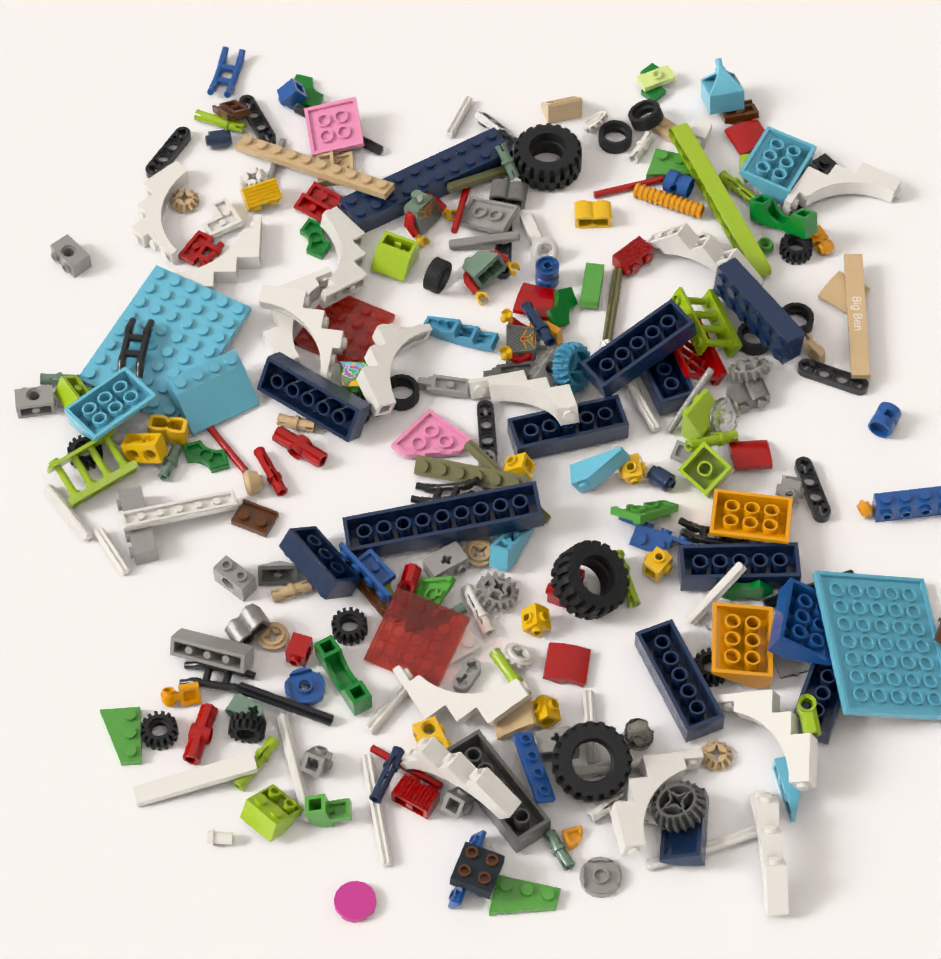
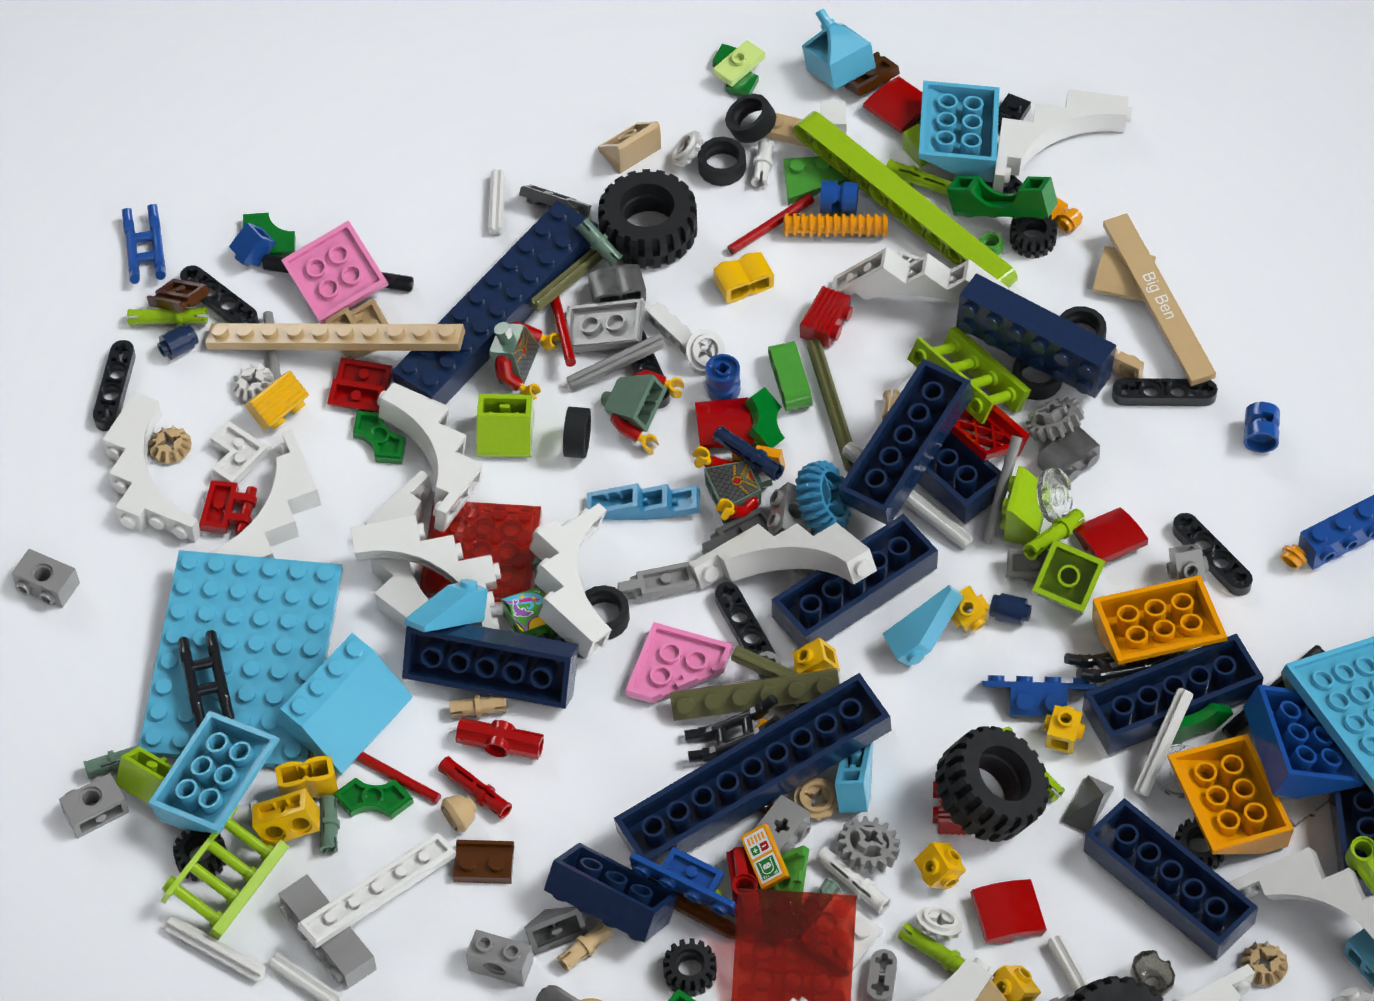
camera: 20 degrees left, 0 degrees up
(301, 354) = (451, 607): none -> medium azure slope
(425, 574) = (764, 856): none -> tile
(649, 511) = (1016, 663): bright green wing -> none
(653, 615) = (1088, 804): none -> dark grey slope

